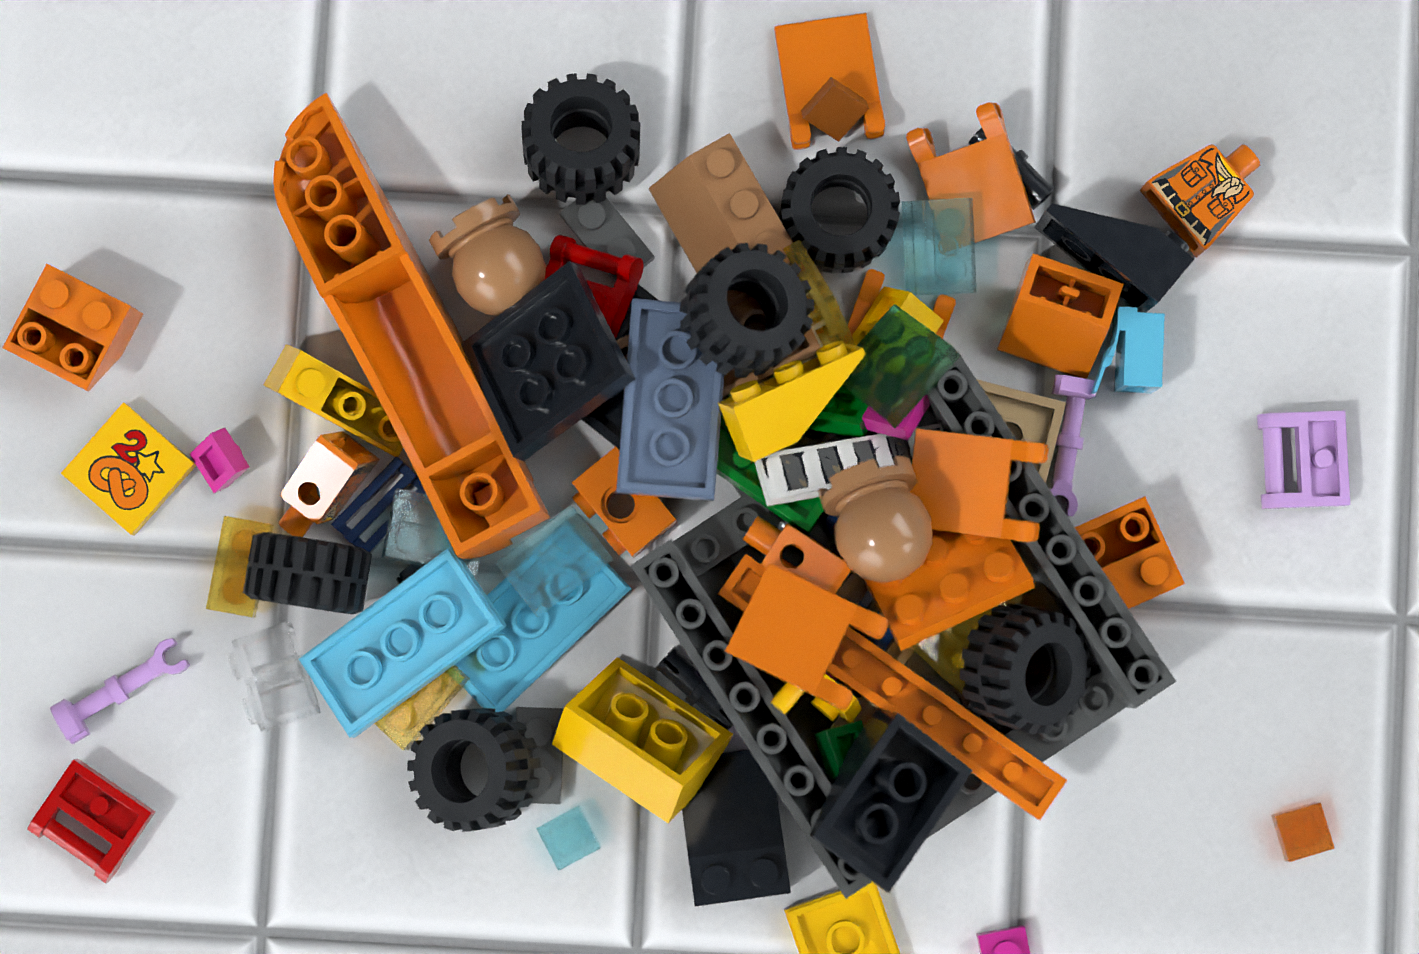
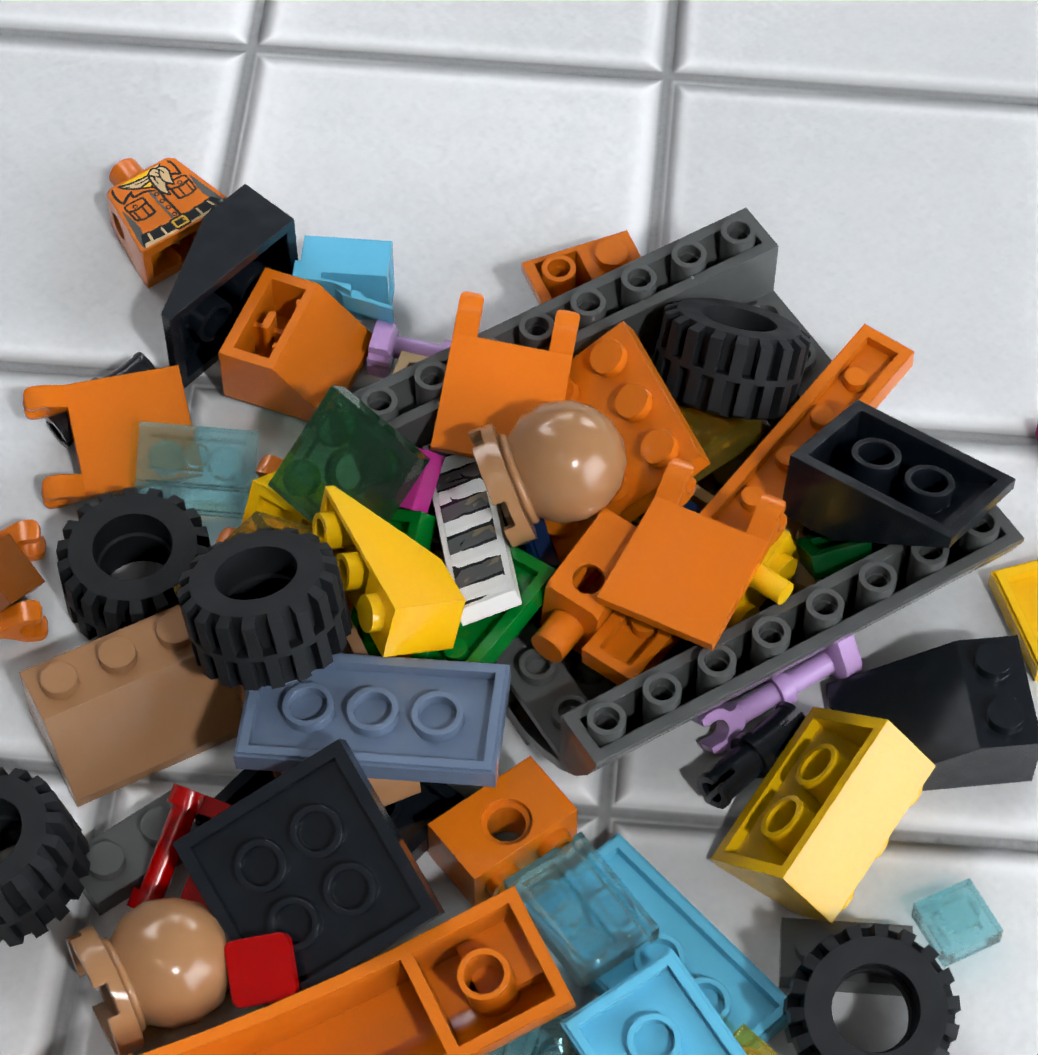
camera: 90 degrees left, 30 degrees down
(485, 334) = (261, 969): none -> red piece
(1302, 831) = (909, 164): clear orange plate -> none
(1319, 459) = (483, 128): lavender plate -> none

